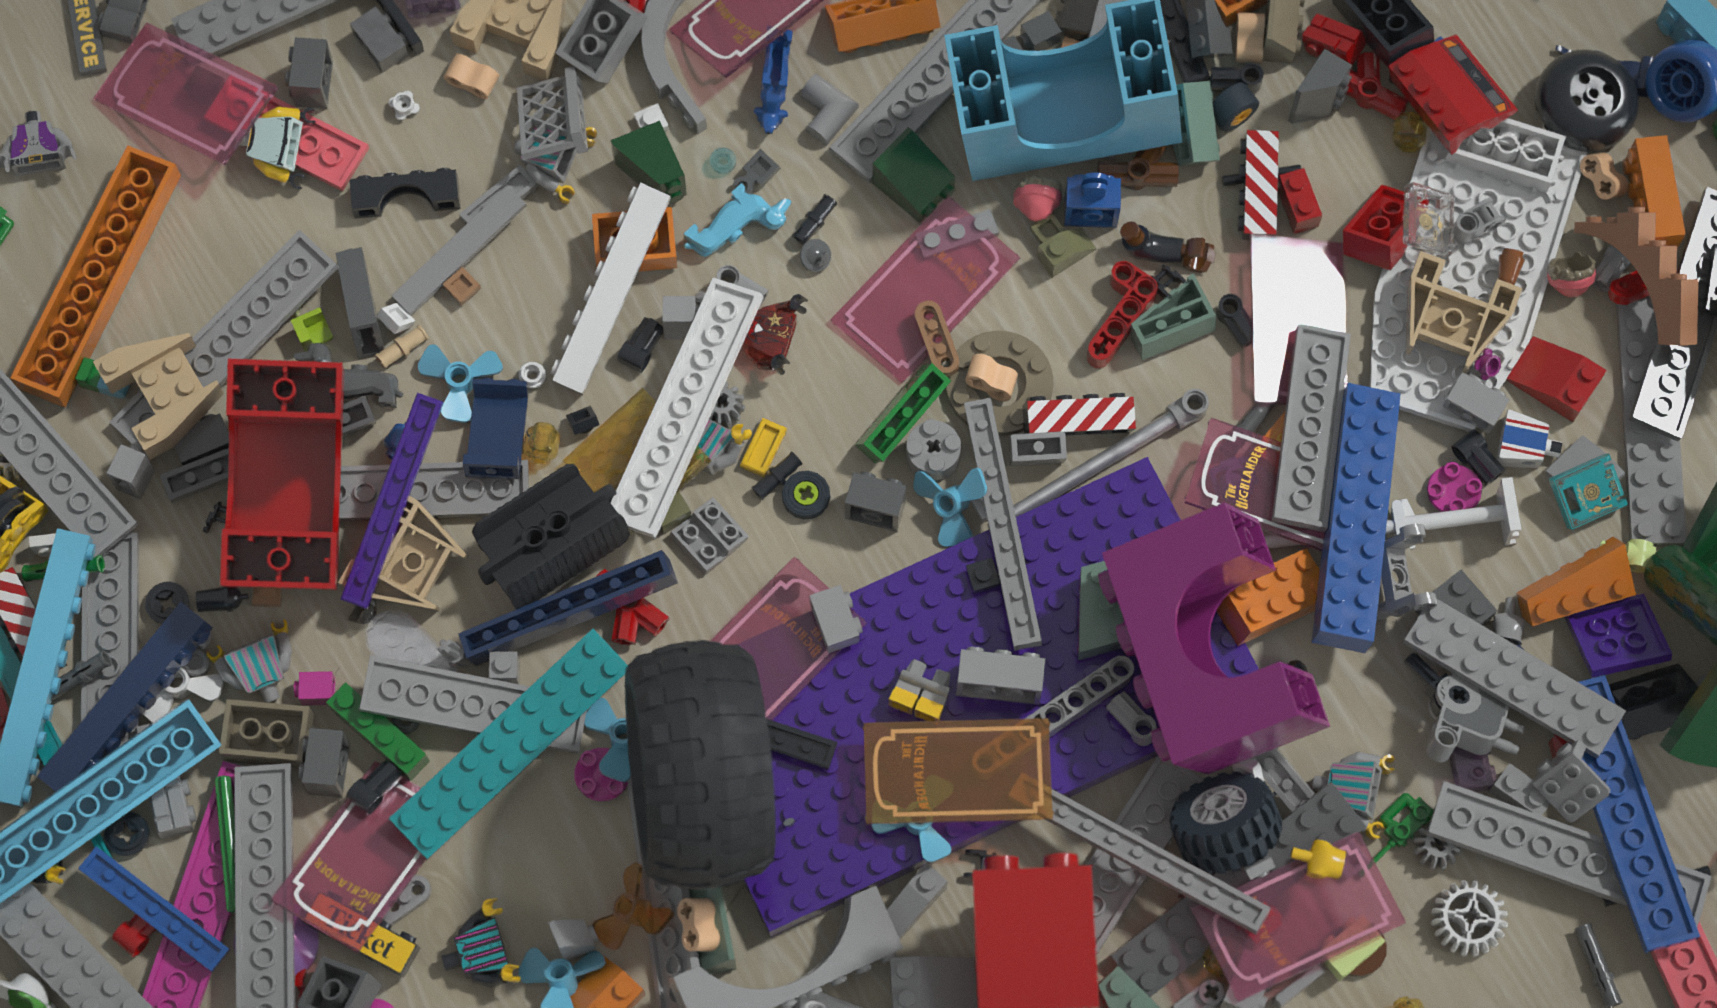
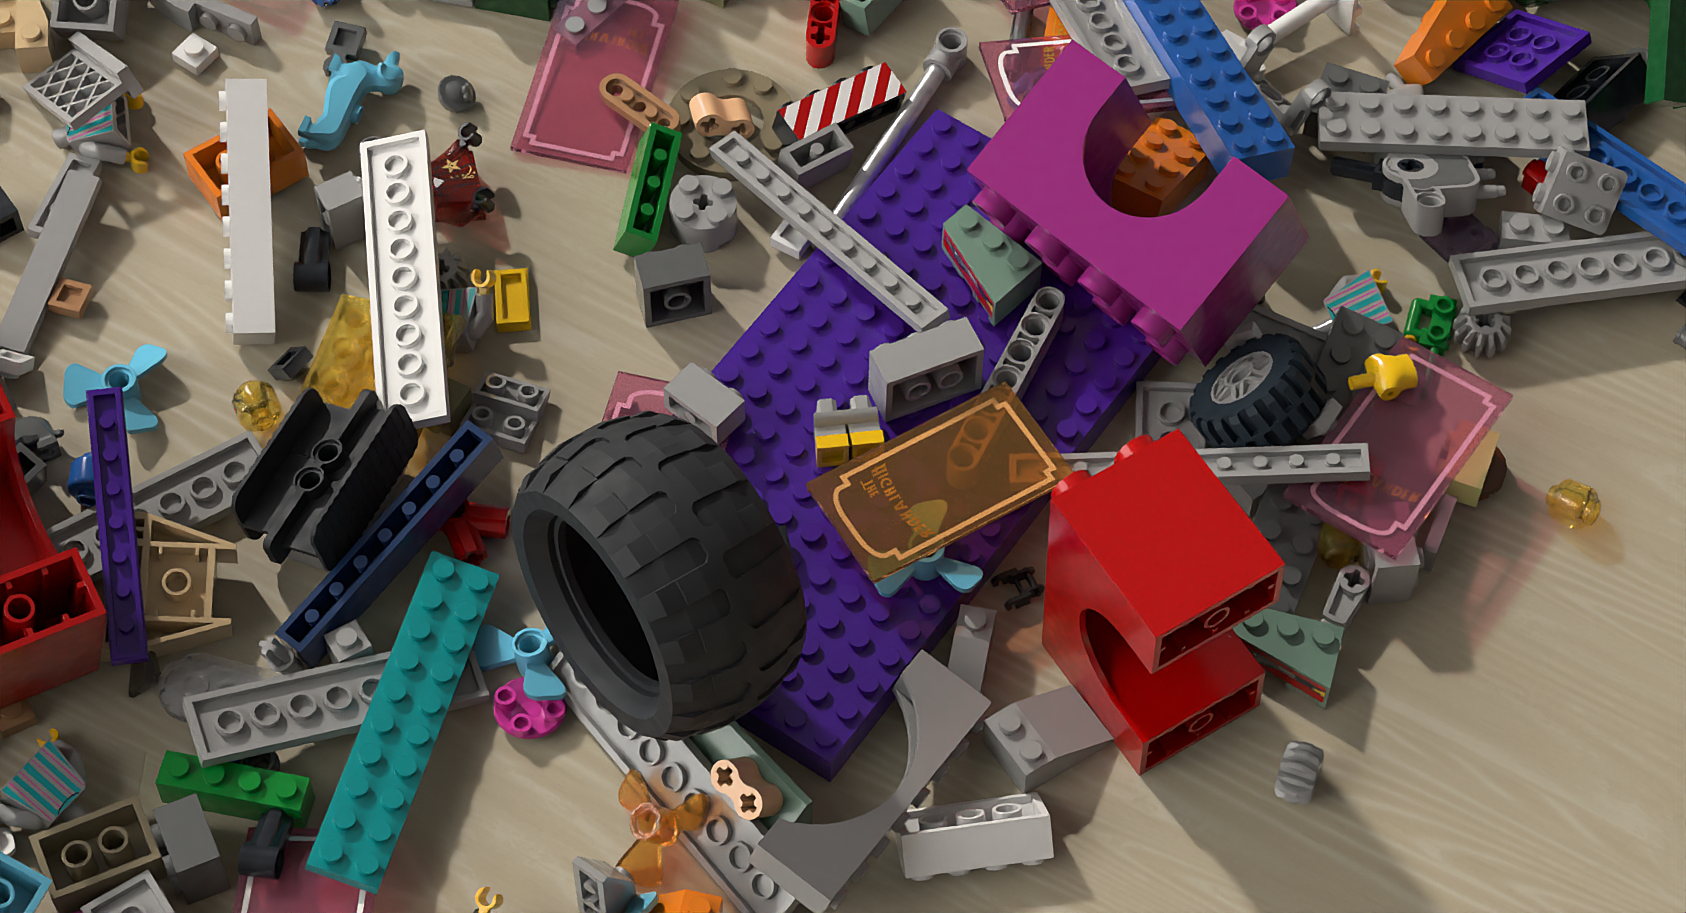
camera: 30 degrees left, 15 degrees down
(315, 687) = (130, 778): dark pink brick -> none
(401, 346) = (35, 387): tan pin -> none
(497, 429) = (194, 414): dark blue panel -> none
(532, 367) = (201, 341): white plate -> none
(650, 160) = (202, 70): dark green slope -> none
(721, 153) = (298, 53): clear light blue plate -> none
(776, 475) = (545, 317): black pin -> none
(810, 507) = (604, 324): black bush -> none
(814, 219) = (434, 62): black pin -> none
(954, 526) = (770, 272): medium azure piece -> none
(983, 575) = (838, 292): black plate -> none
(1131, 717) = (1093, 348): light grey piece -> none
(1481, 919) = (1558, 390): white gear -> none

